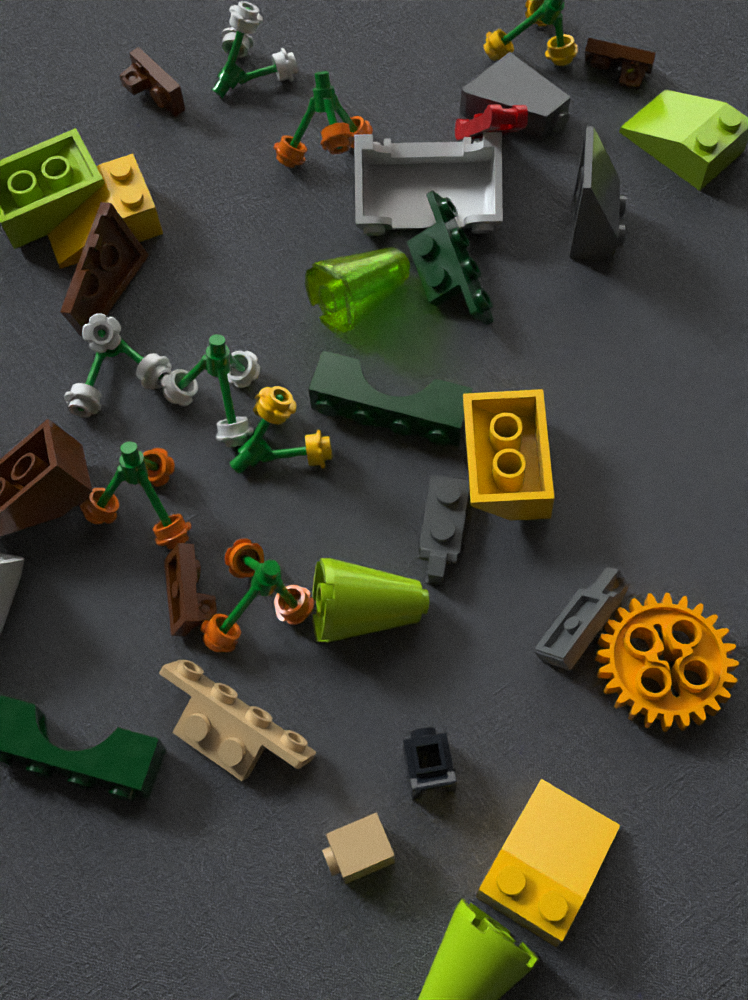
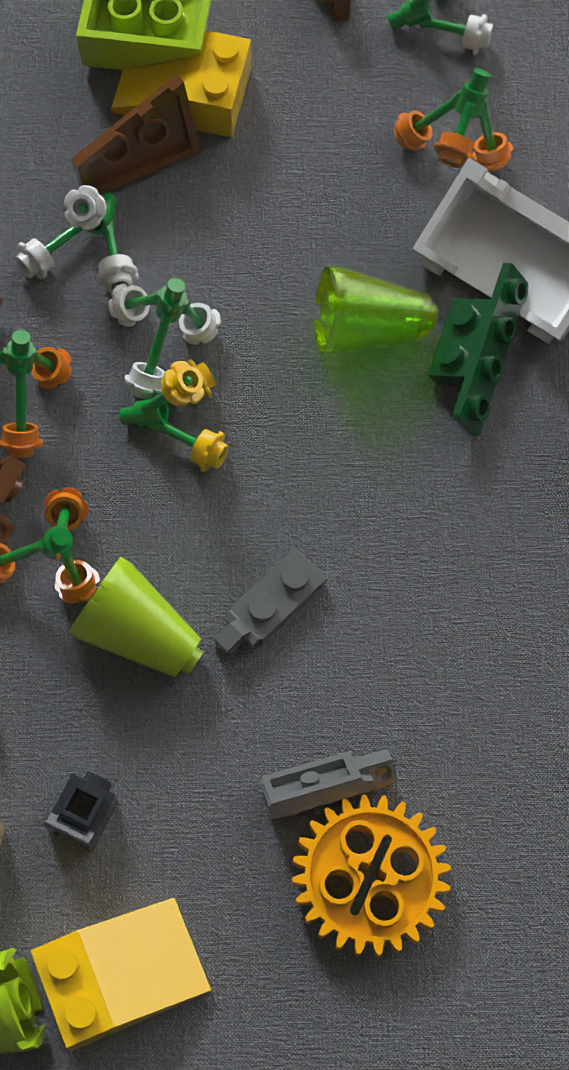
camera: 30 degrees right, 5 degrees up
(431, 413) = (347, 489): dark green arch -> none
(509, 454) = (375, 576): yellow slope -> none

